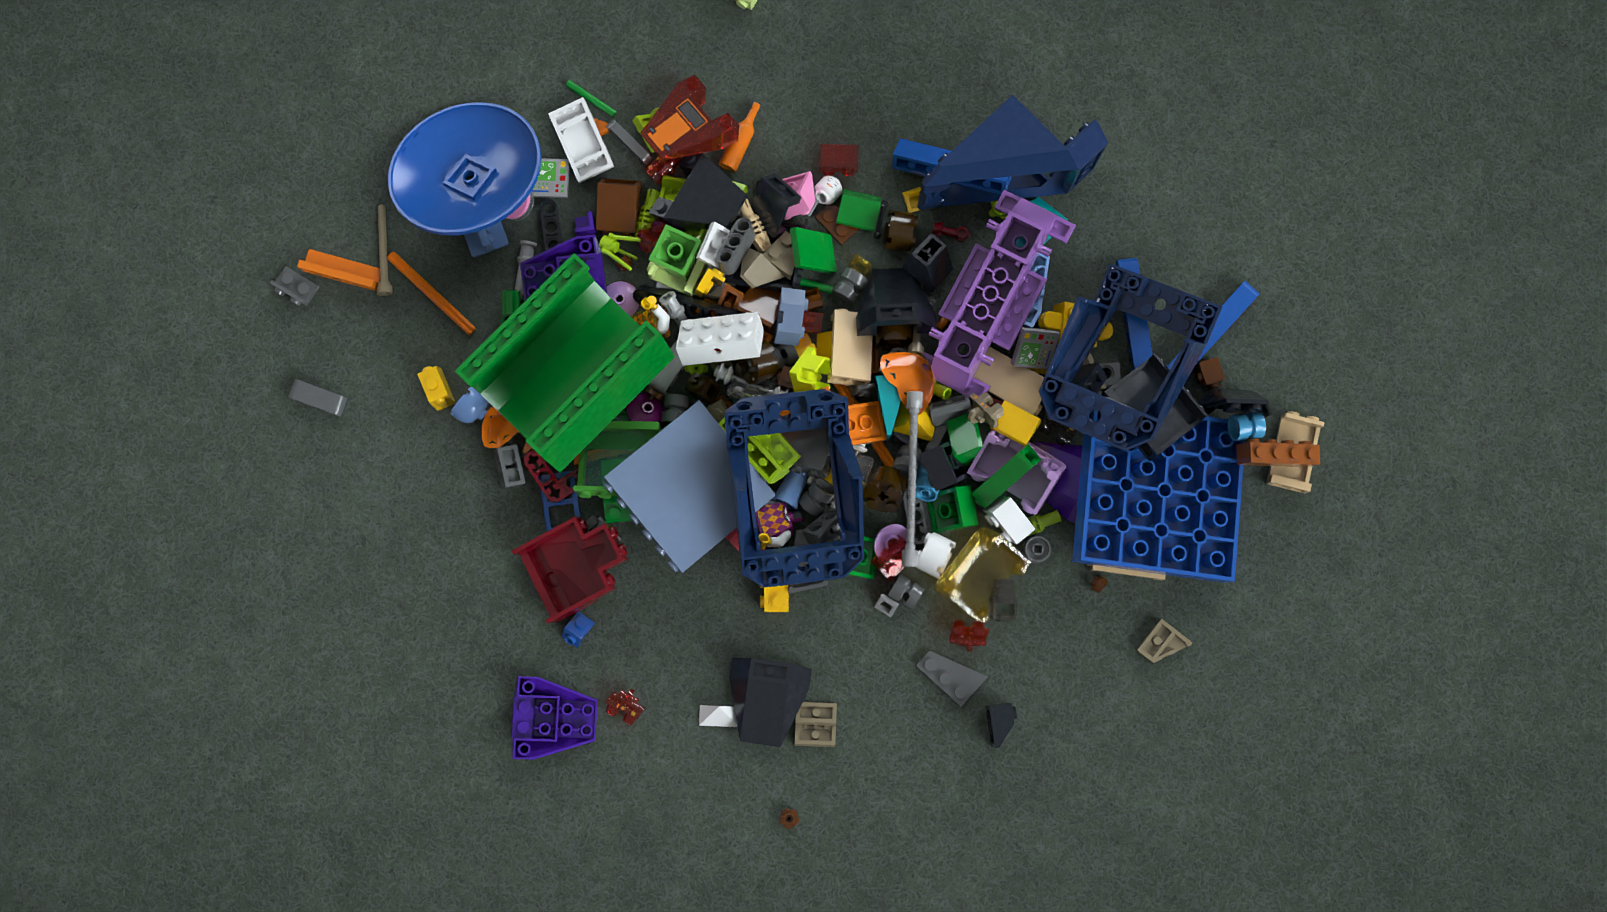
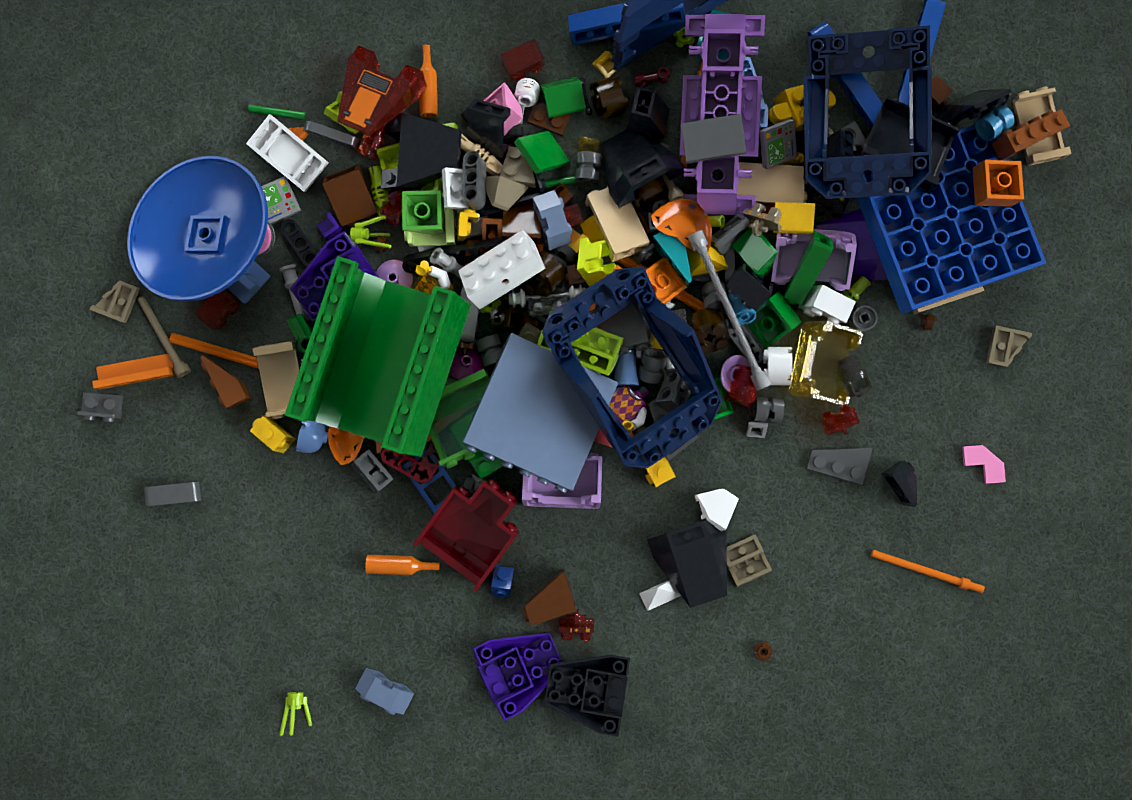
camera: 25 degrees left, 5 degrees up
(328, 644) = (294, 702): none -> lime plant
(359, 199) = (117, 302): none -> dark tan wing
(415, 677) = (385, 693): none -> sand blue brick
(420, 328) = (230, 388): none -> dark orange slope
(445, 249) = (217, 309): none -> clear red brick
(471, 329) = (278, 375): none -> tan panel
(488, 565) = (397, 565): none -> orange piece
(607, 773) = (590, 691): none -> black wedge
(614, 668) = (550, 601): none -> reddish brown slope
(691, 584) = (584, 495): none -> lavender windscreen
(812, 659) = (717, 507): none -> white slope
(971, 313) = (714, 138): none -> dark grey tile
(1011, 849) = (962, 582): none -> orange bar
(1094, 751) = (992, 466): none -> bright pink tile
(1221, 483) = (998, 183): none -> orange brick

